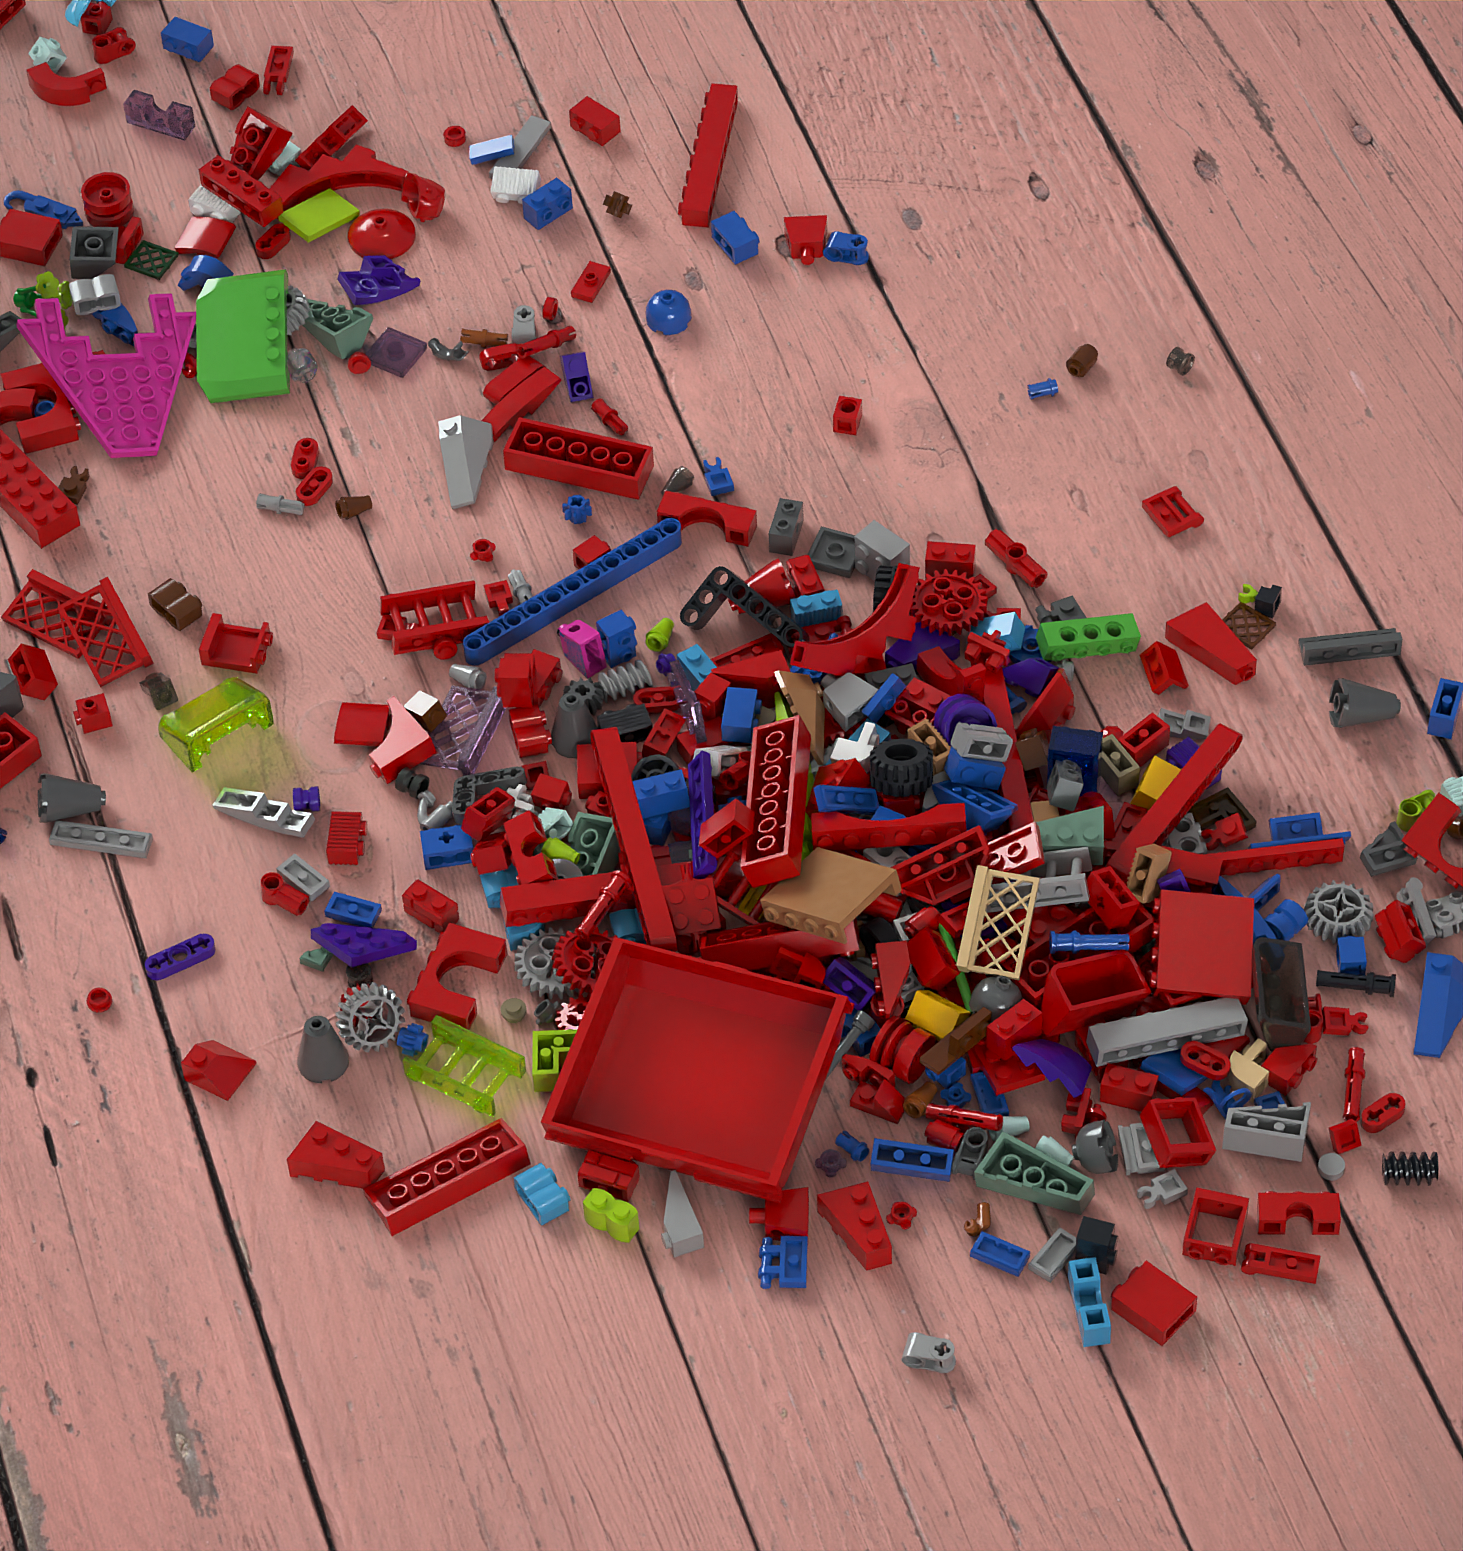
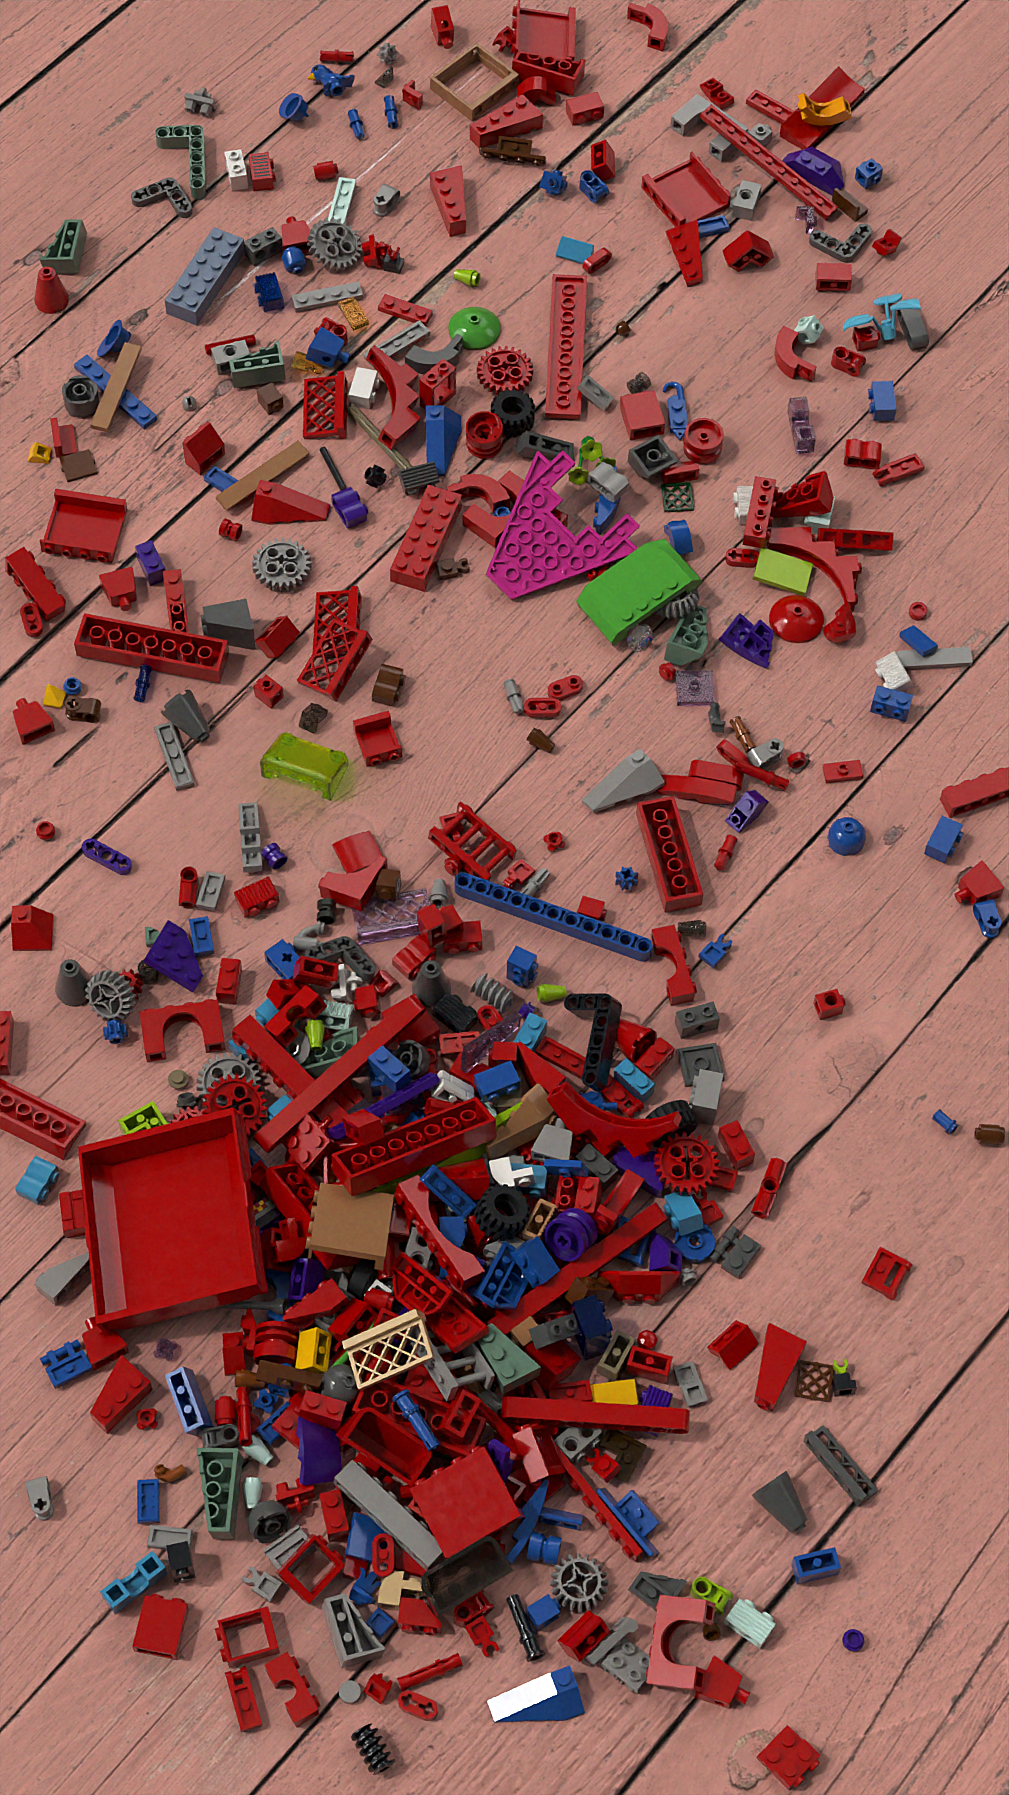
camera: 55 degrees right, 10 degrees up
(205, 236) = (716, 516): red slope -> none
(465, 1043) = (130, 1083): clear neon green fence -> none
(582, 647) = (505, 943): dark pink torso -> none
(589, 691) = (461, 981): dark grey gear -> none
(594, 121) = (992, 689): red brick -> none
(608, 897) = (280, 1085): red pin -> none
(611, 1215) = (41, 1234): lime brick -> none
(617, 204) = (922, 747): reddish brown gear -> none
(856, 1149) = (185, 1355): blue pin -> none
(981, 742) = (552, 1253): light grey brick -> none
(990, 647) = (649, 1204): red hips -> none
(1088, 637) = (719, 1264): bright green brick -> none
(1148, 866) = (501, 1426): medium nougat brick -> none

